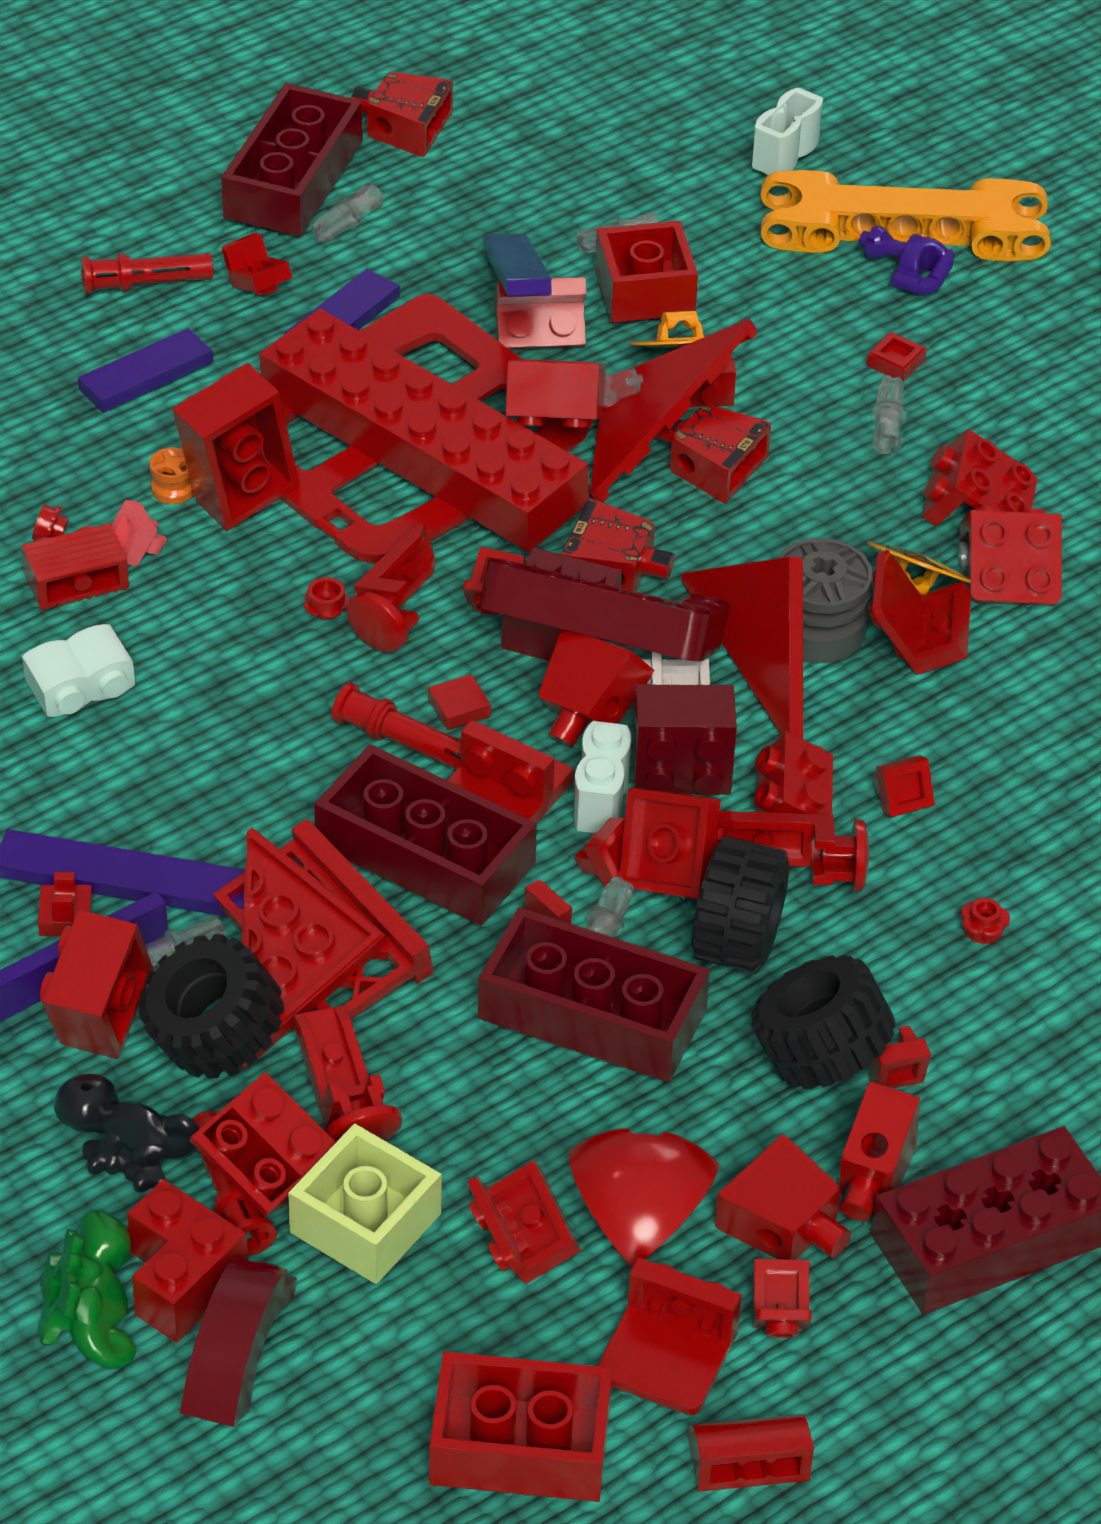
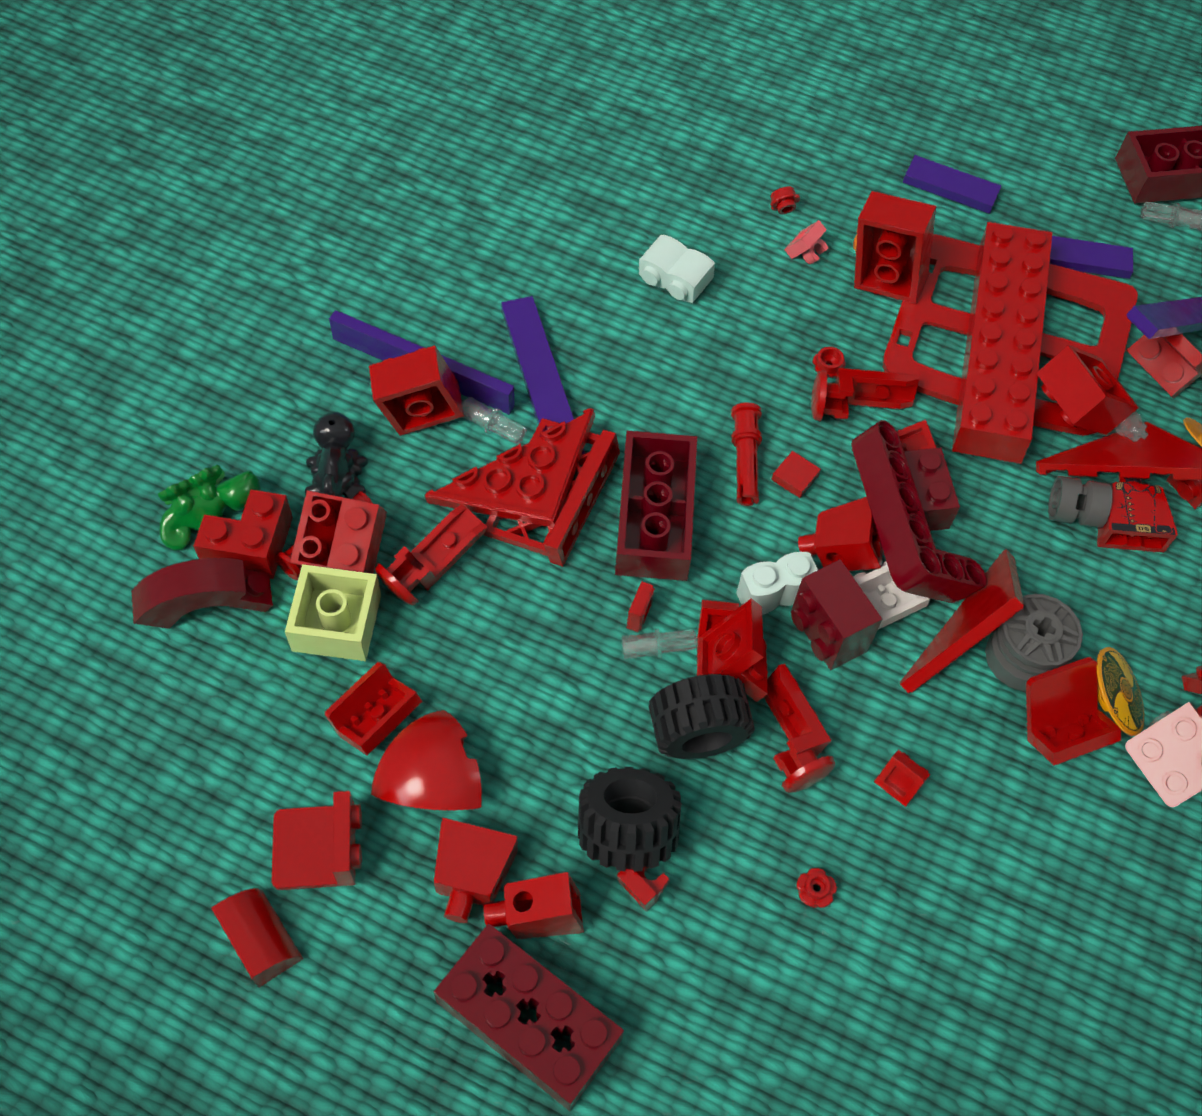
camera: 60 degrees right, 15 degrees up
(61, 903) = (493, 353): red tile -> none
(75, 566) = (758, 226): red brick -> none
(198, 268) = (1021, 134): red pin -> none
(233, 1027) = (438, 456): black tyre -> none
(252, 268) = (1081, 190): red bracket -> none
(510, 772) = (743, 529): red bracket -> none
(520, 1426) = (197, 785): red brick -> none
(593, 994) = (597, 679): dark red brick -> none
(620, 542) = (989, 497): red torso -> none
(672, 480) = (1089, 507): none -> dark grey wheel
(781, 1297) = (388, 900): red bracket -> none
(794, 777) = (857, 706): red bracket -> none

